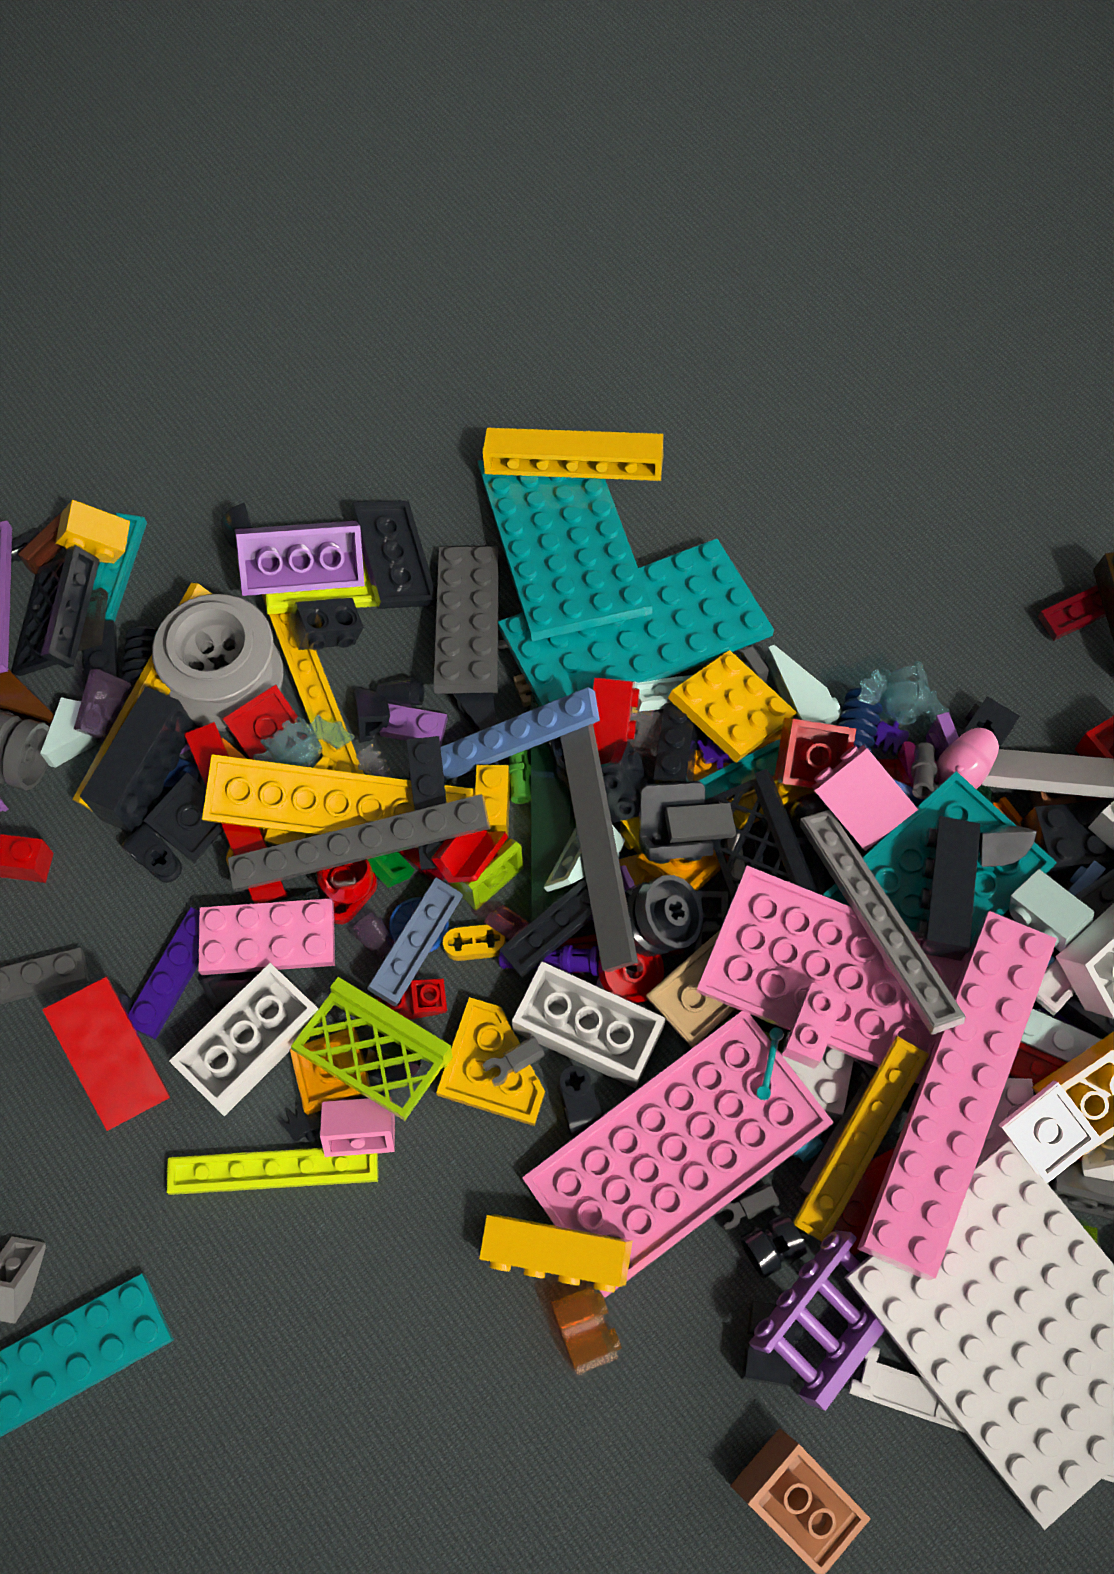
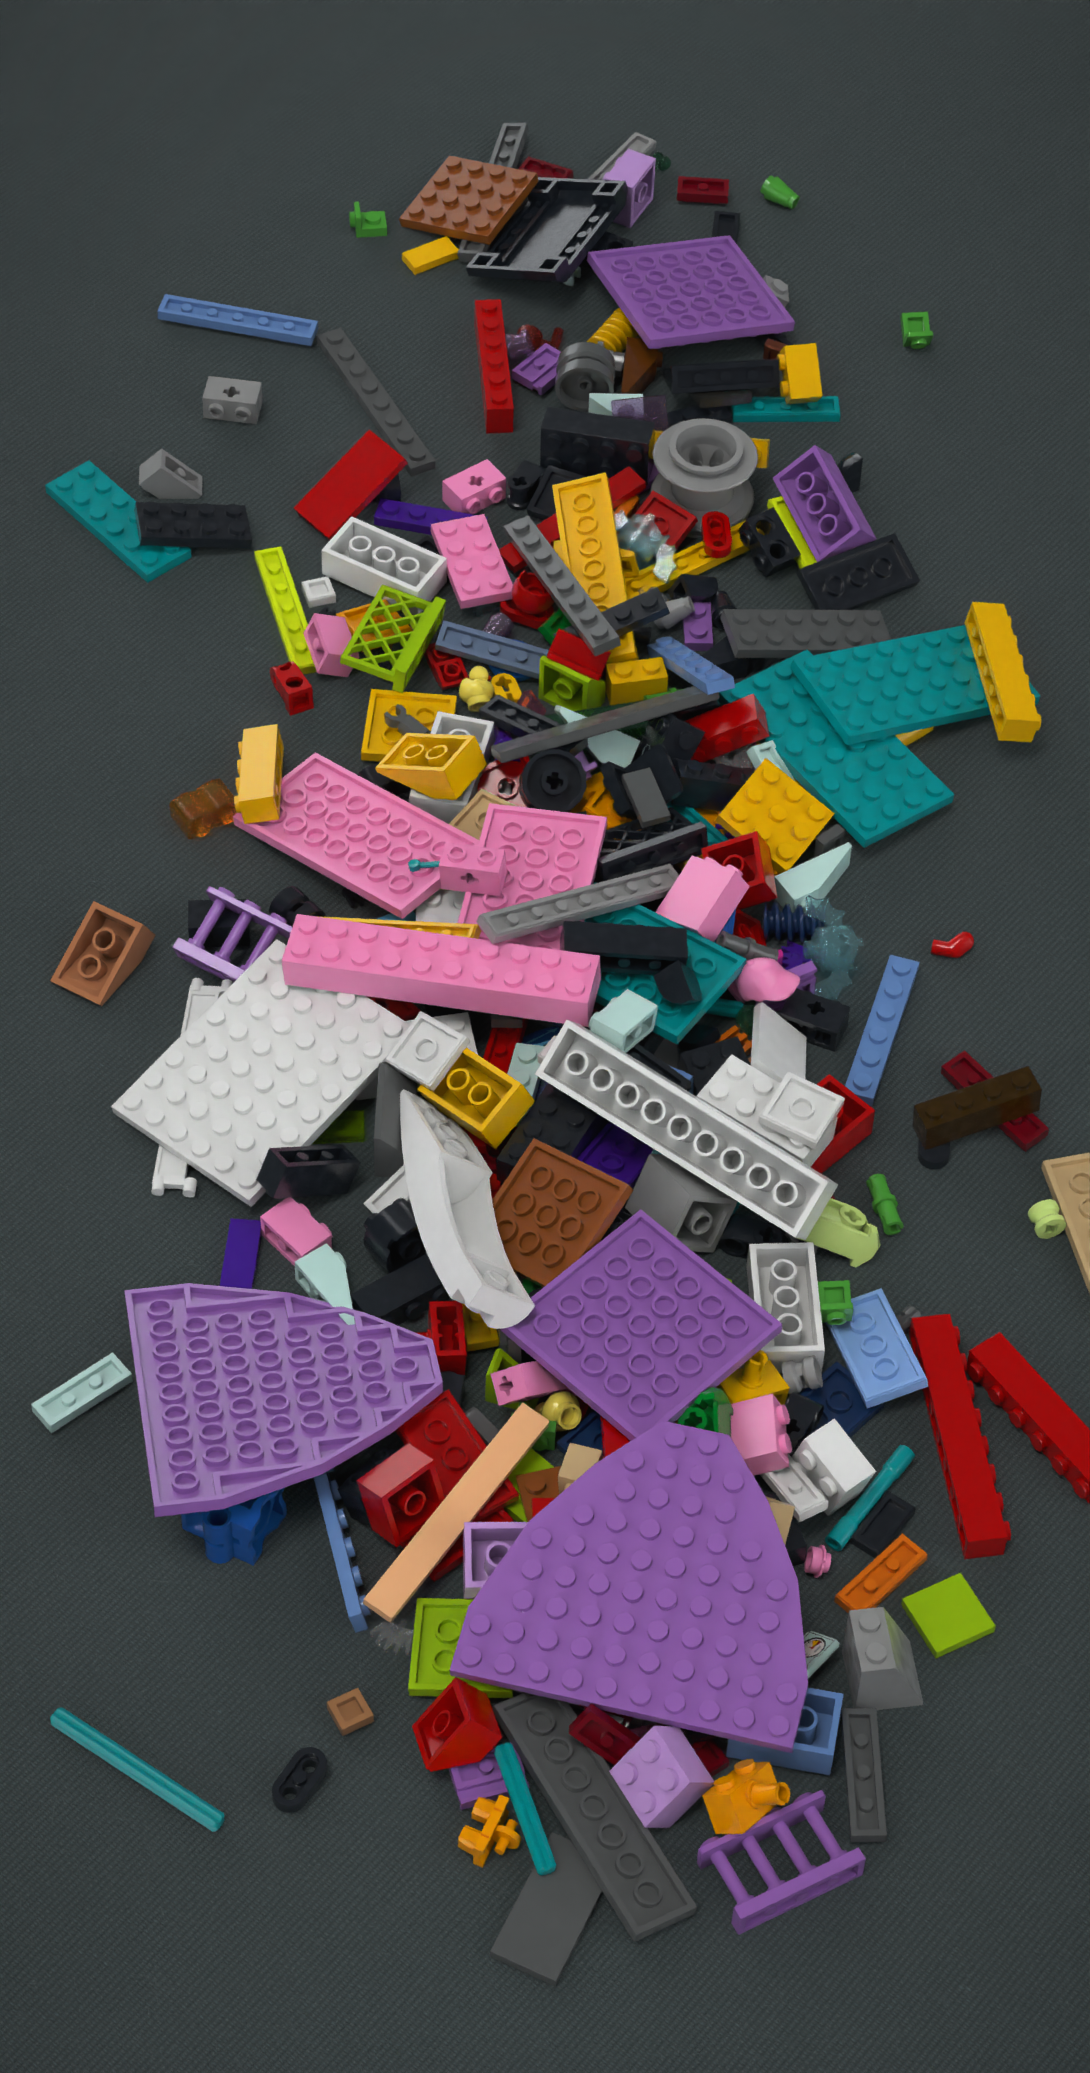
camera: 75 degrees right, 15 degrees down
(46, 417) = (916, 330): none -> bright green bracket
(106, 1265) = (192, 525): none -> black plate
(132, 899) = (474, 488): none -> bright pink brick
(252, 1126) = (318, 592): none -> white tile
(304, 671) = (716, 534): none -> red plate
(395, 743) = (678, 610): none -> light grey cone
(405, 1186) = (292, 687): none -> red leg
(467, 971) = (476, 689): none -> light yellow animal
(607, 1043) = (434, 763): none -> yellow slope
(751, 1205) = (326, 899): dark grey bar -> none
(901, 591) = (955, 947): none -> red arm
(995, 680) = (882, 1028): none -> medium blue plate

